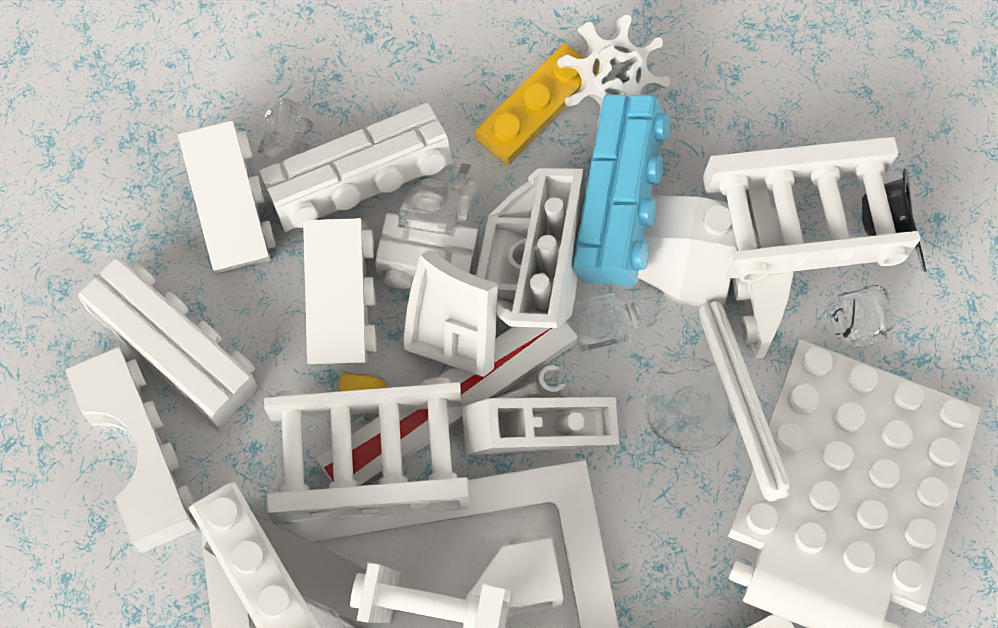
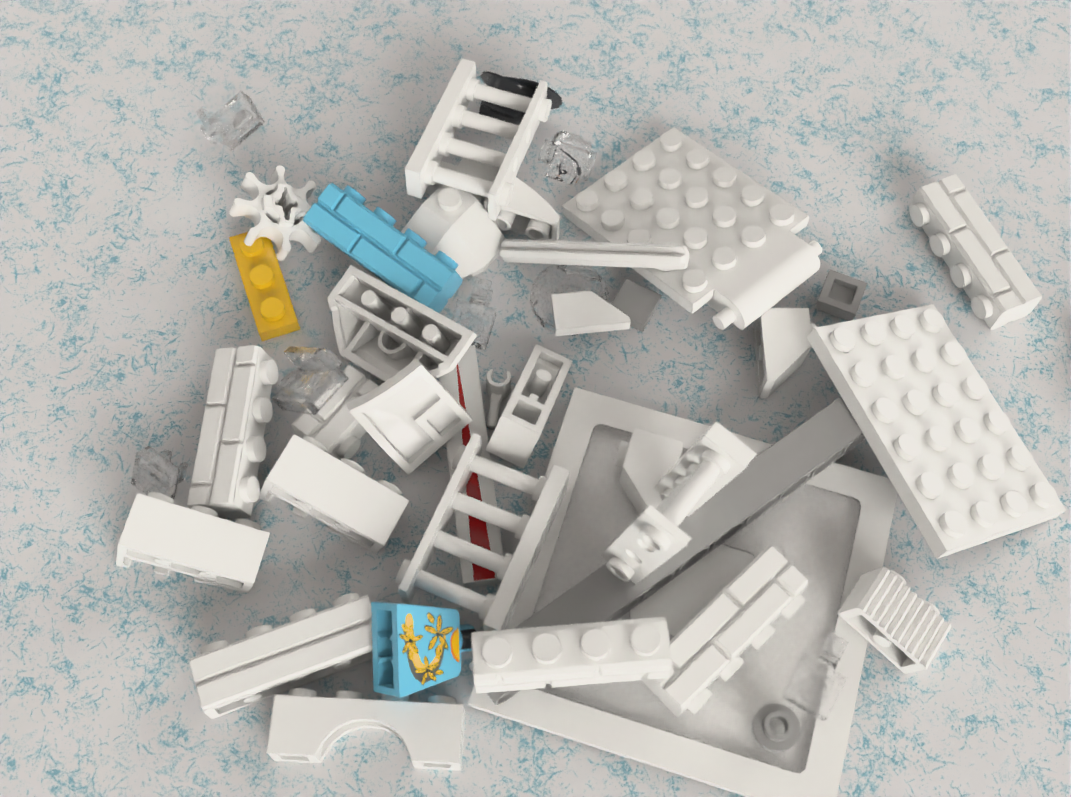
camera: 65 degrees left, 5 degrees down
(224, 445) = (416, 646): none -> medium azure torso
(355, 381) = (420, 518): yellow tile -> none
(673, 426) = (585, 313): none -> white tile
(722, 474) = (637, 303): none -> light grey tile

